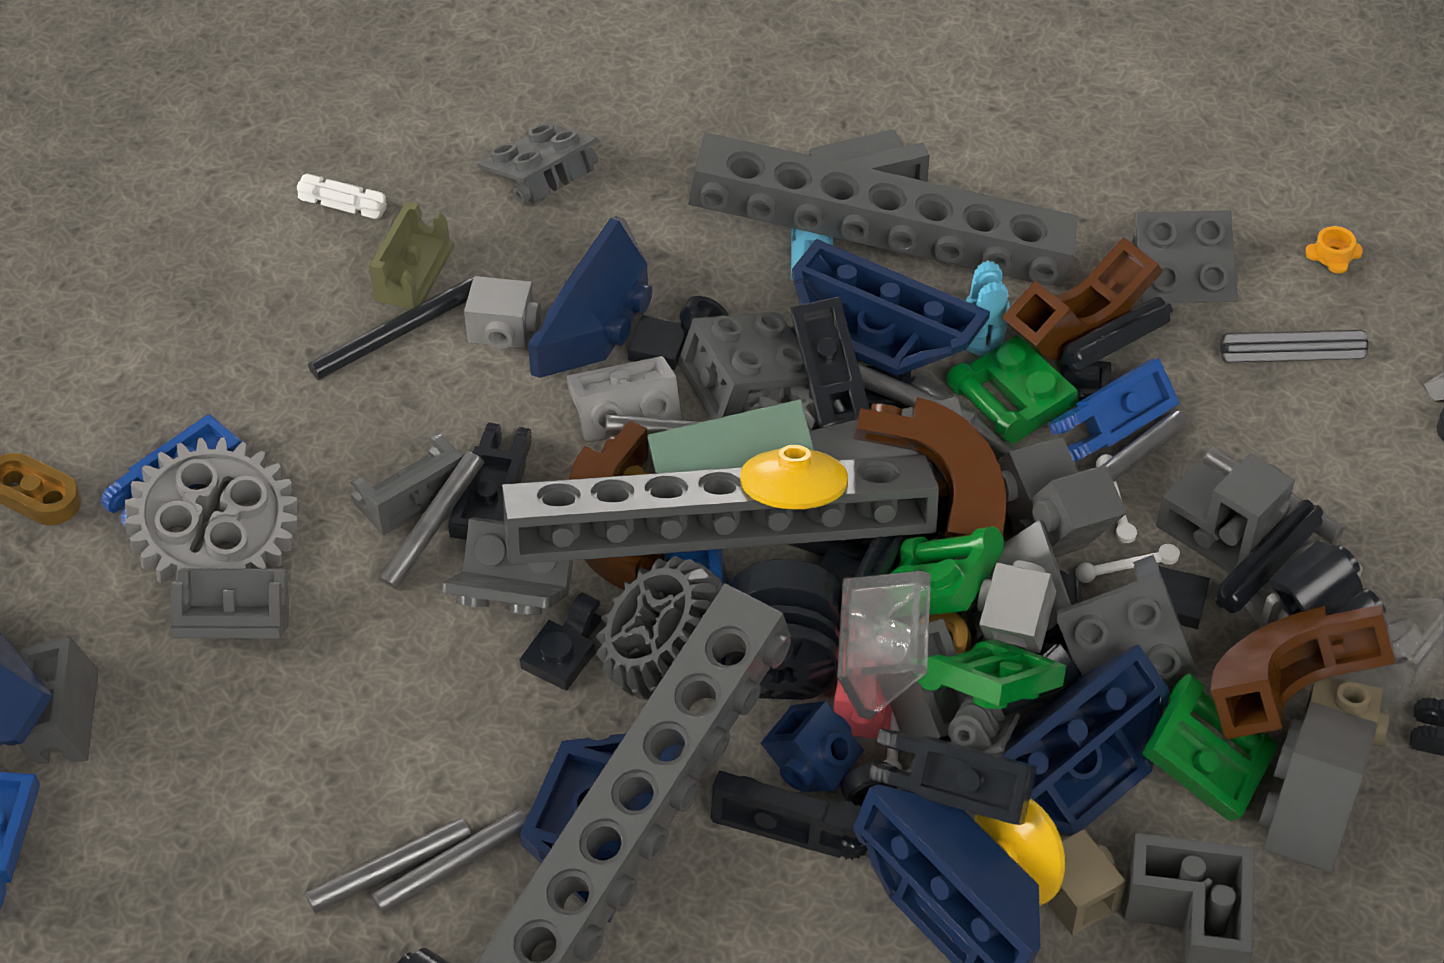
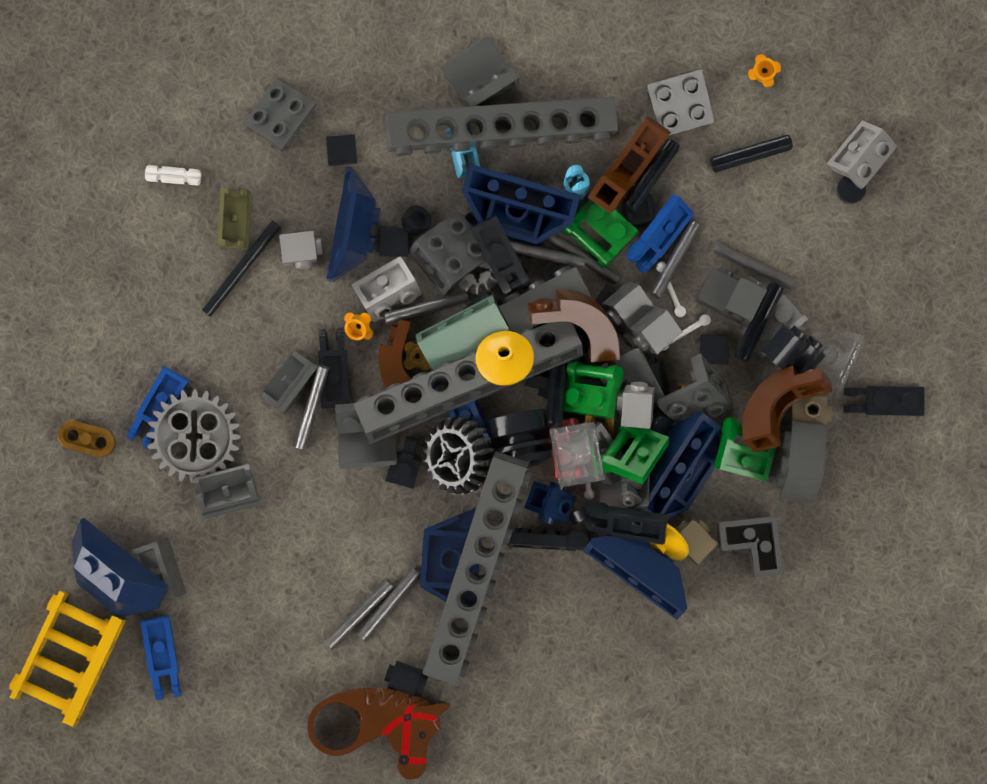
camera: 15 degrees left, 35 degrees up
(545, 430) = (353, 331): none -> light orange plate
(610, 206) = (341, 150): none -> black tile

